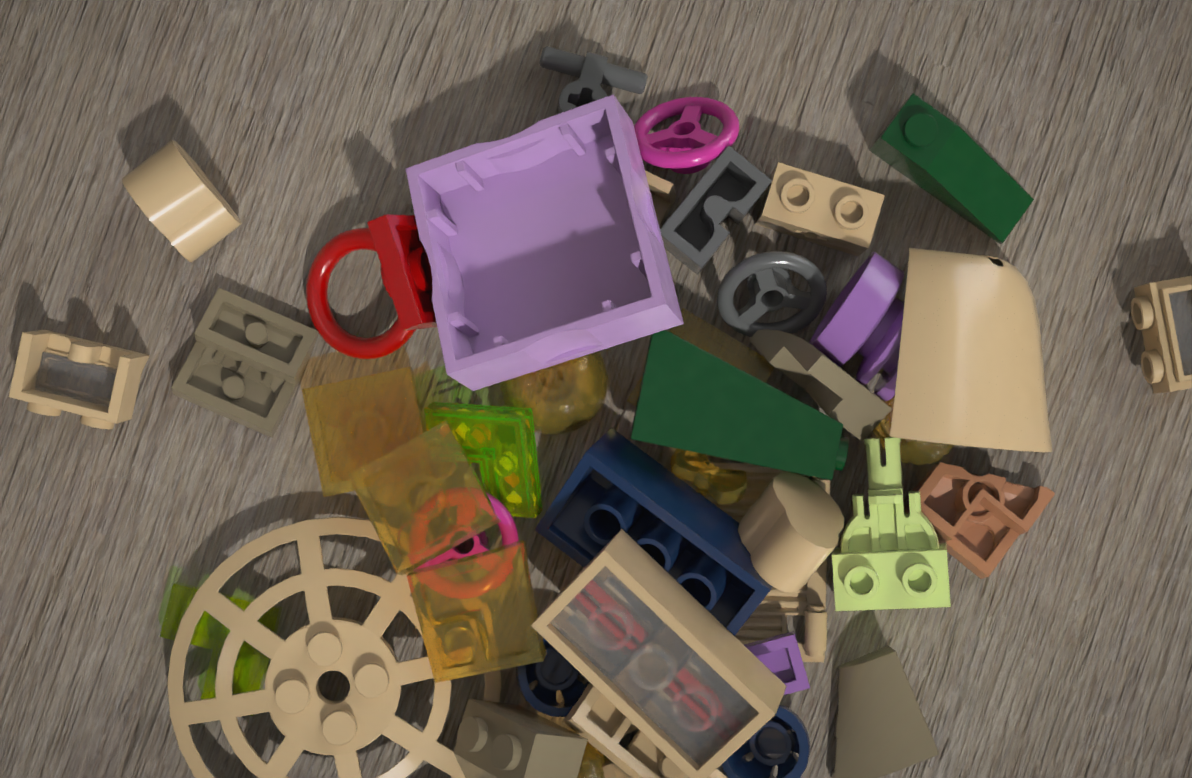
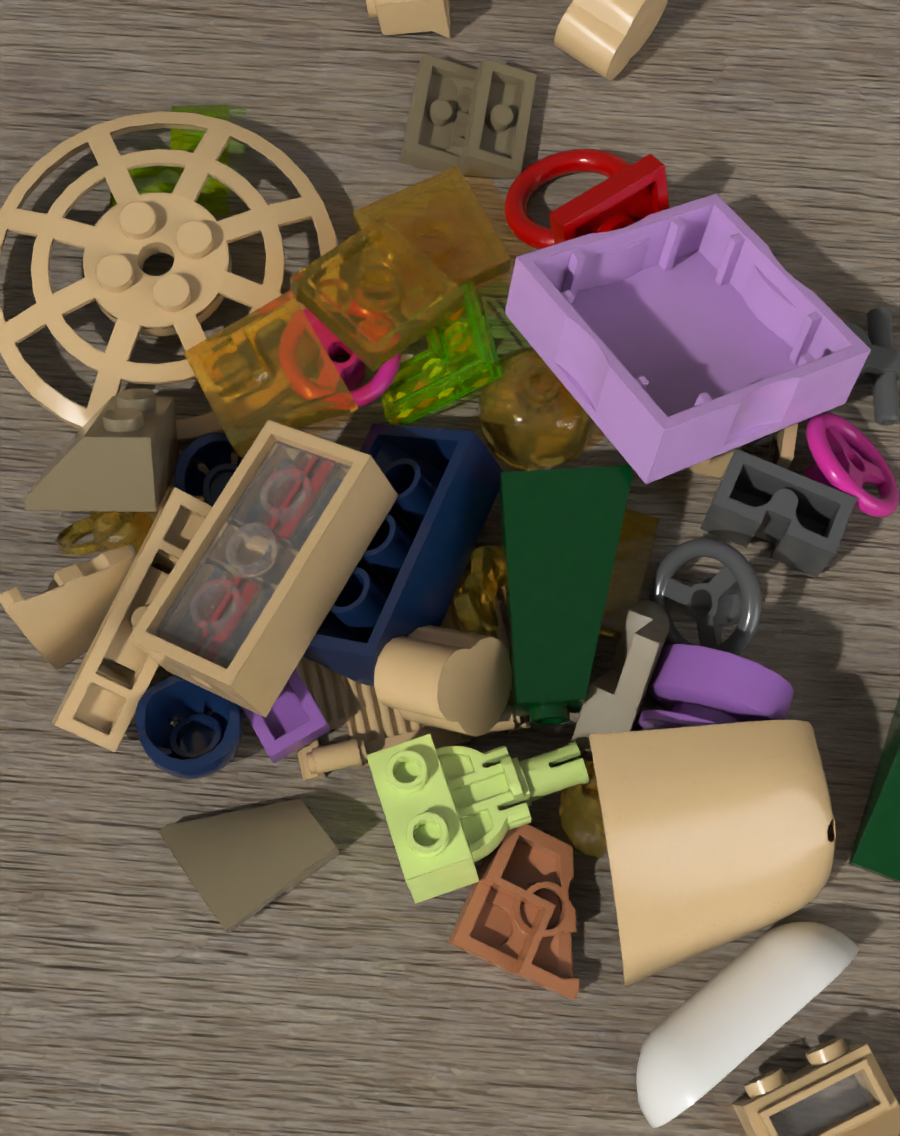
camera: 75 degrees right, 15 degrees down
(820, 209) = (819, 629): tan brick -> none
(1097, 368) = (736, 1014): none -> white brick

